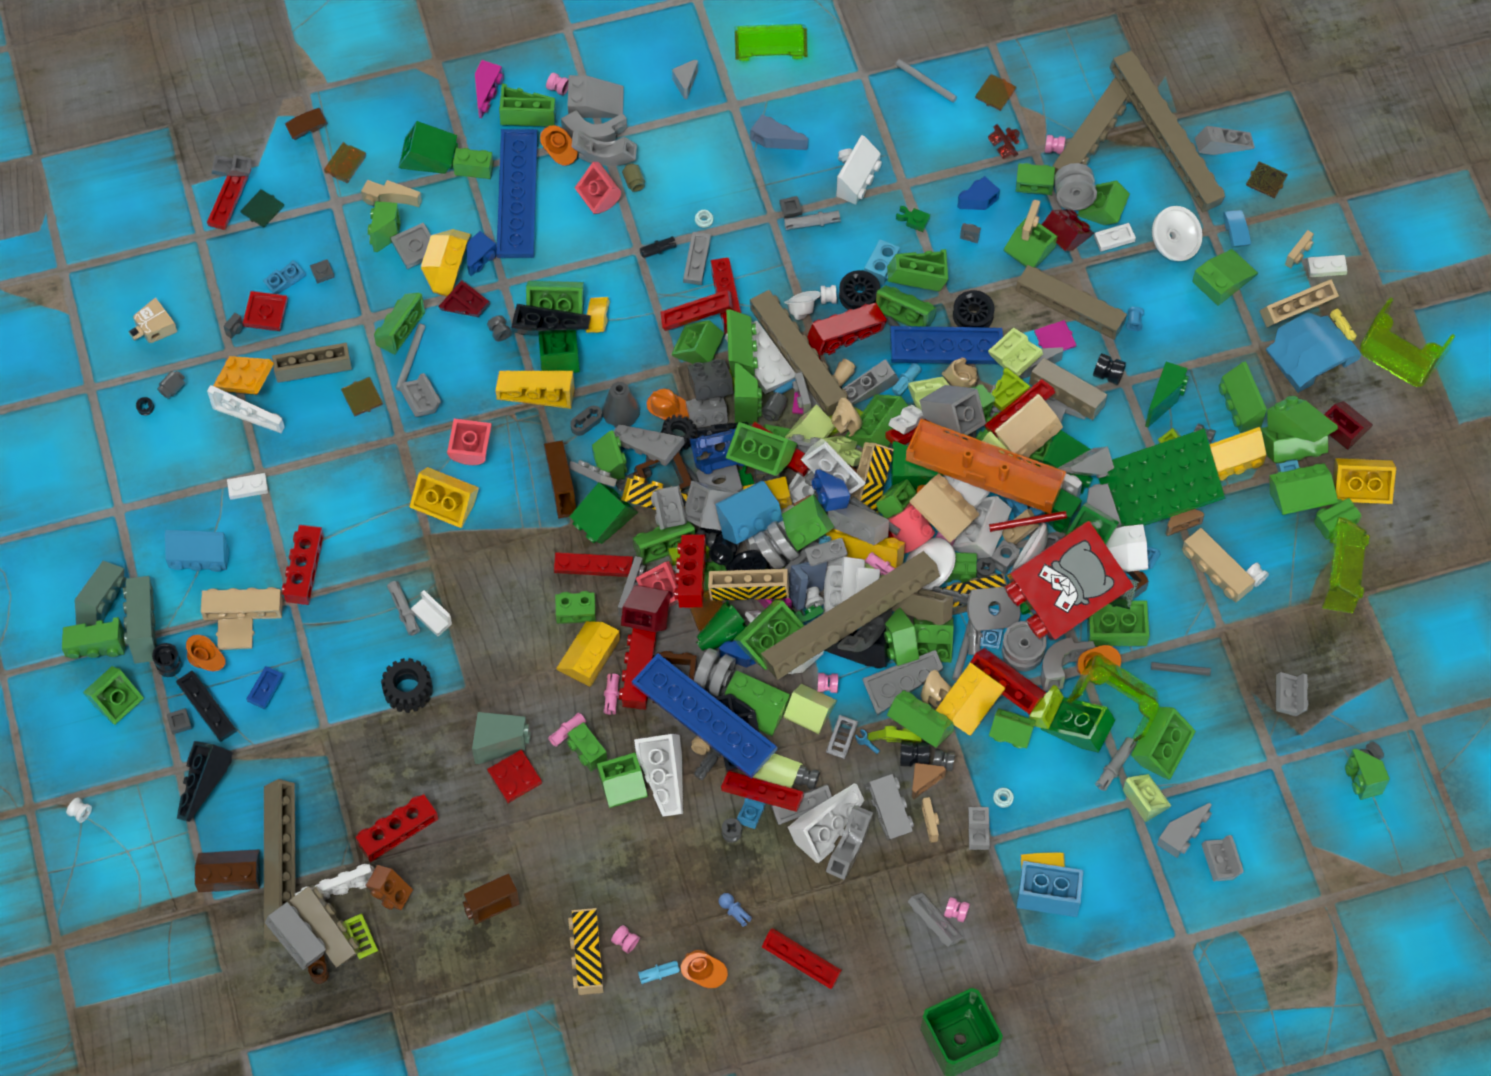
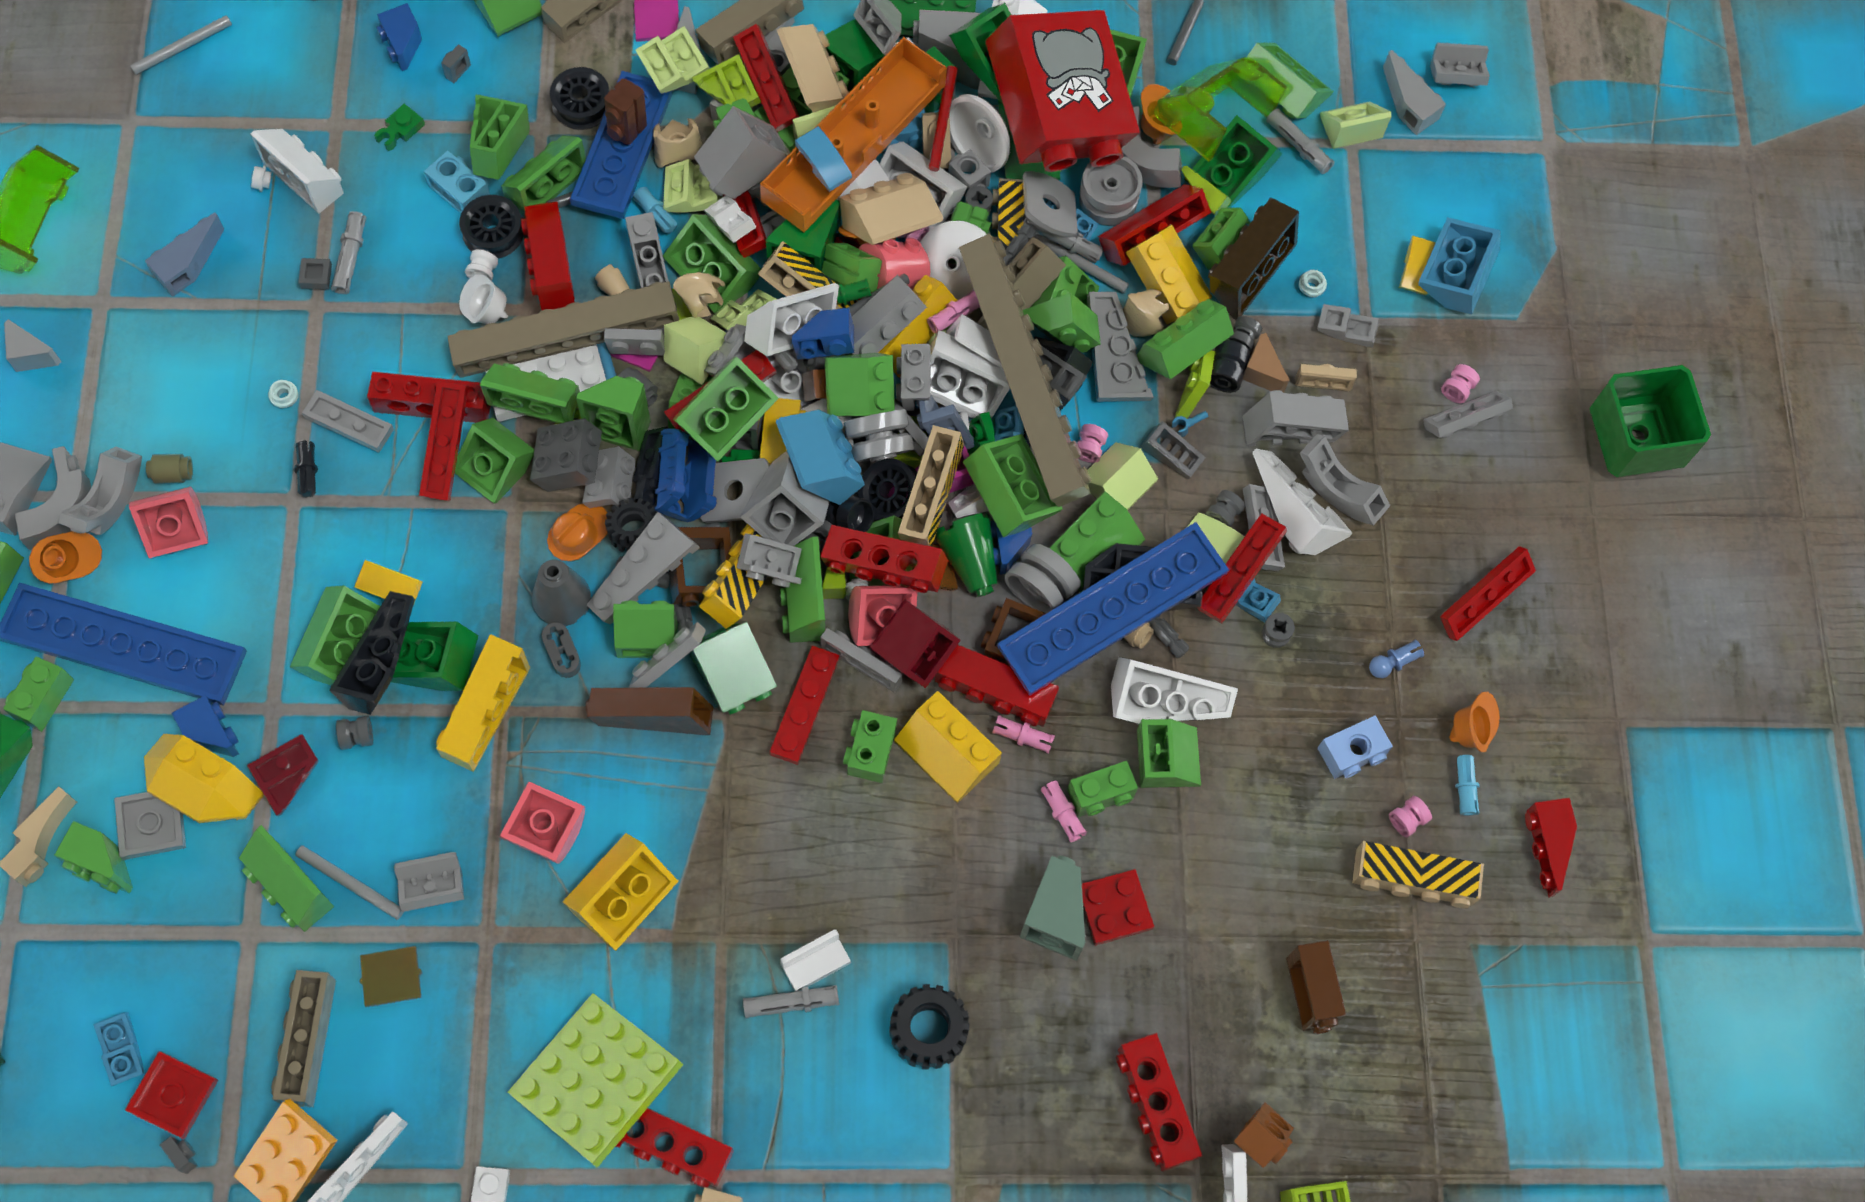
camera: 80 degrees left, 5 degrees up
(322, 271) = (132, 984): dark grey plate -> none
(327, 514) = (595, 1079): none -> lime plate
(637, 1033) = (1553, 834): none -> red slope
(657, 884) = (1366, 735): none -> light blue brick
(870, 497) = (852, 291): none -> green pin
(952, 449) = (824, 158): none -> dark azure slope
(959, 334) = (625, 111): none -> copper brick
(1001, 749) = (1254, 256): none -> dark brown slope

